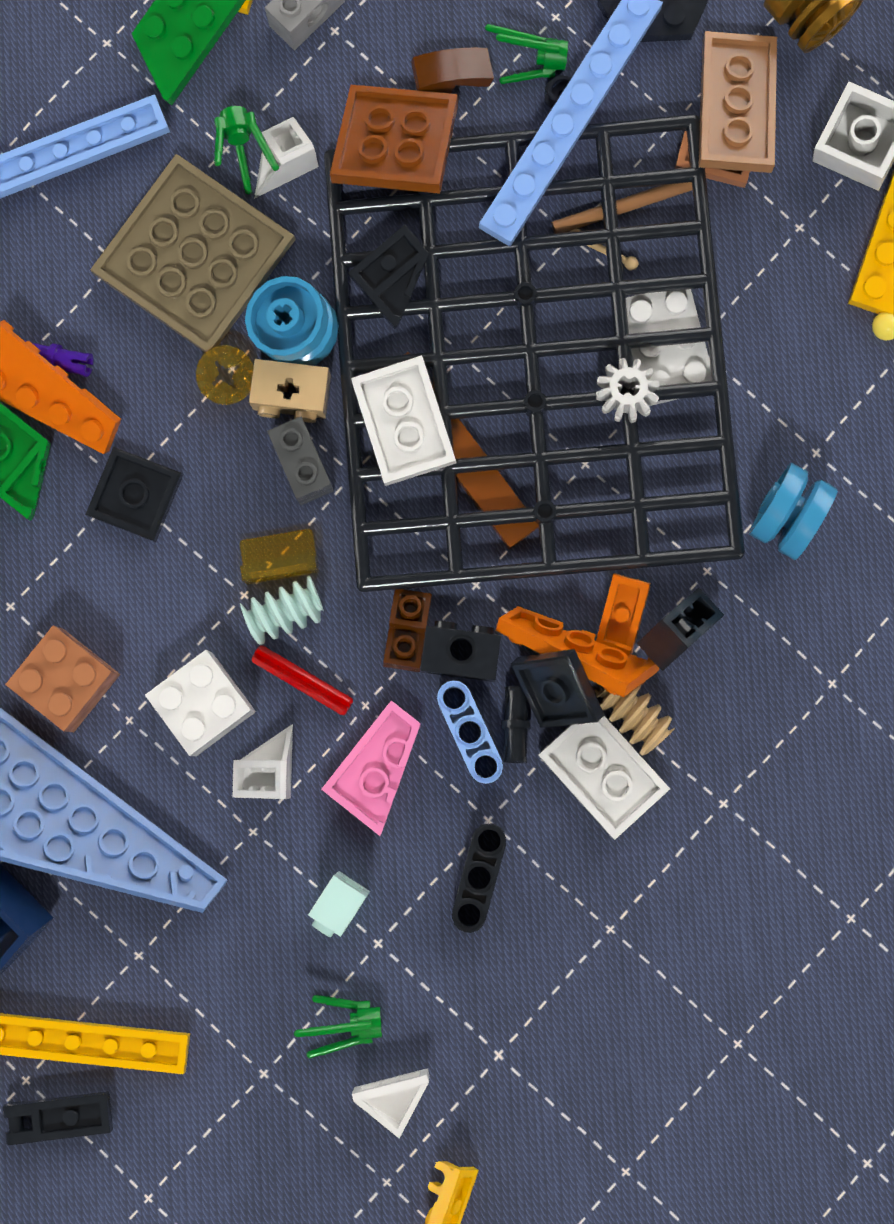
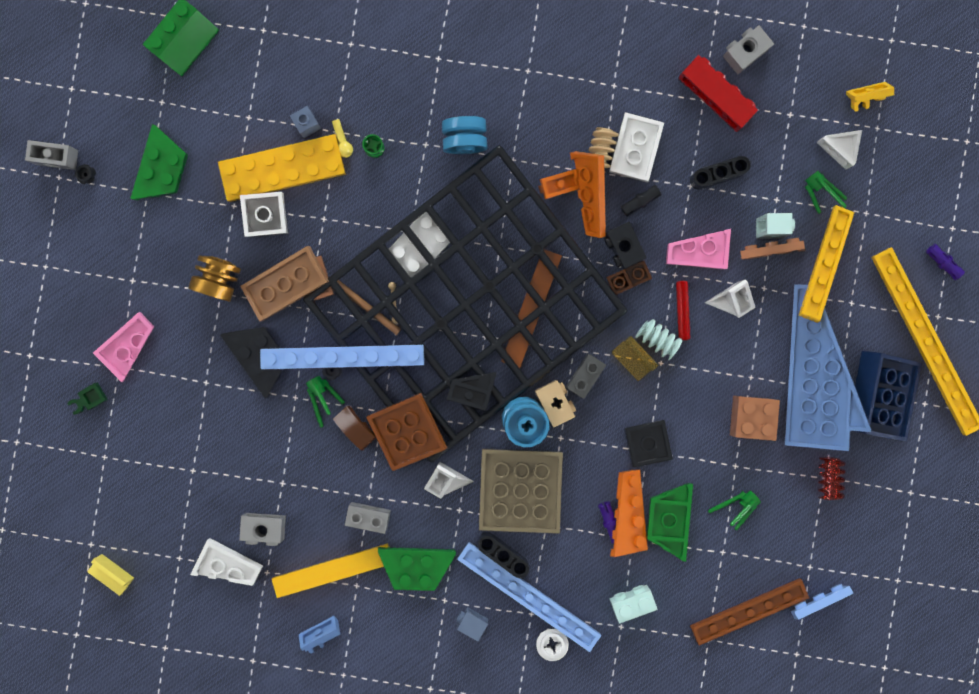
camera: 130 degrees left, 5 degrees up
(45, 56) = (471, 623): none -> sand blue brick
(59, 1118) = (946, 290): black plate -> none
(97, 162) = (508, 563): none -> black beam
(103, 1148) = (945, 261): none -> dark purple pin
(200, 703) = (725, 348): white brick -> none
(207, 372) = (576, 435): clear yellow gear -> none
(225, 948) = (826, 264): none -> yellow tile
(236, 126) = (447, 510): green plant -> none
(303, 881) = (772, 248): none -> nougat wing
(403, 420) = (538, 340): white plate -> none
(469, 713) = (666, 213): light blue beam -> none
(557, 688) = (615, 190): black tile -> none
(607, 957) = (718, 93): none -> red brick
(627, 377) = (465, 243): white gear -> none
(651, 1075) = (758, 43): none -> light grey brick
(680, 629) = (552, 152): black brick -> none
(867, 360) = (371, 142): none -> green wheel

